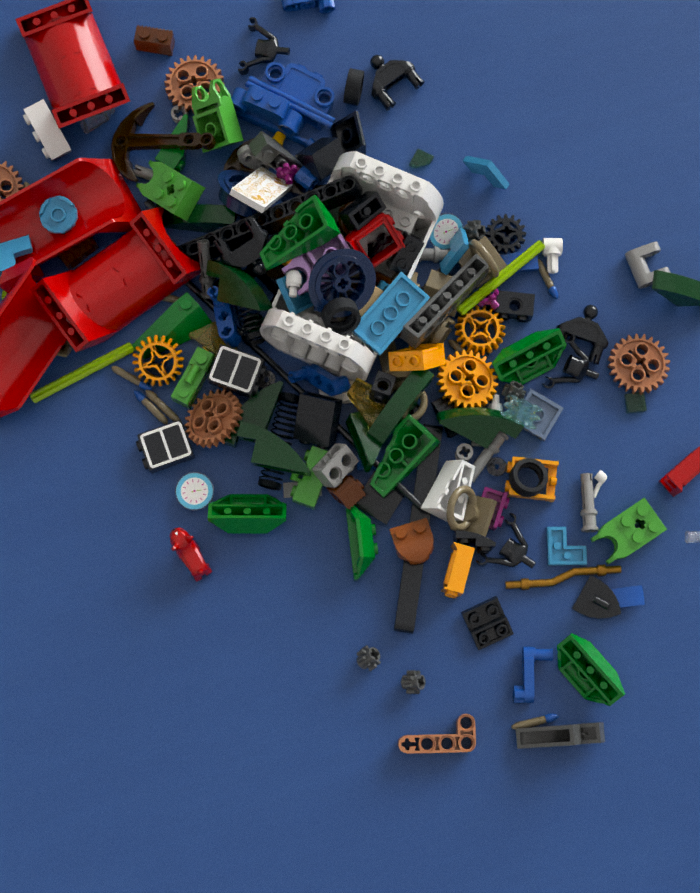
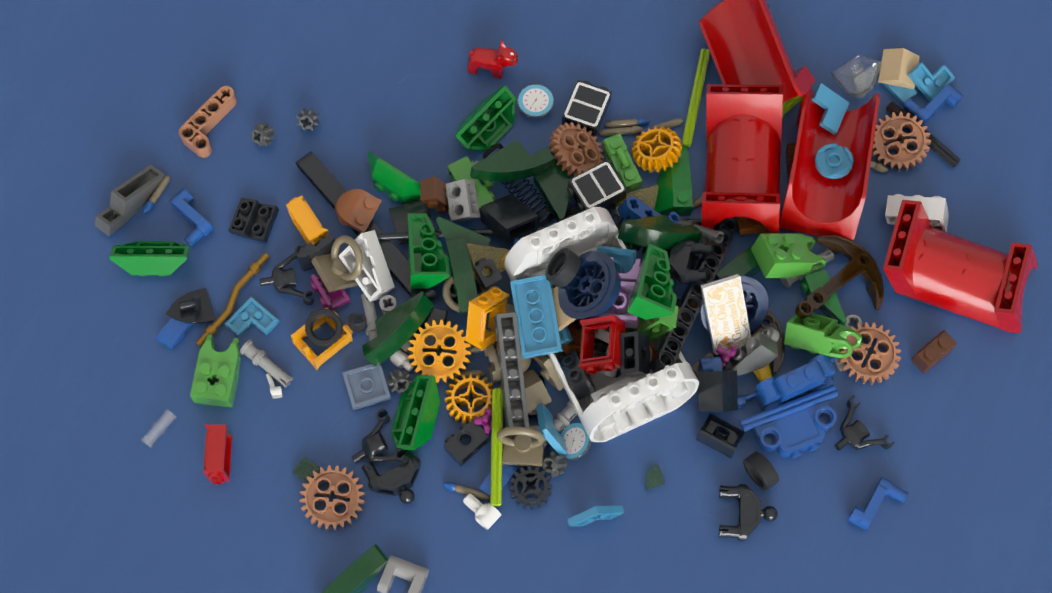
camera: 135 degrees right, 10 degrees down
(293, 282) = (622, 259): white cylinder -> none
(521, 411) = (376, 363): clear light blue pin -> none

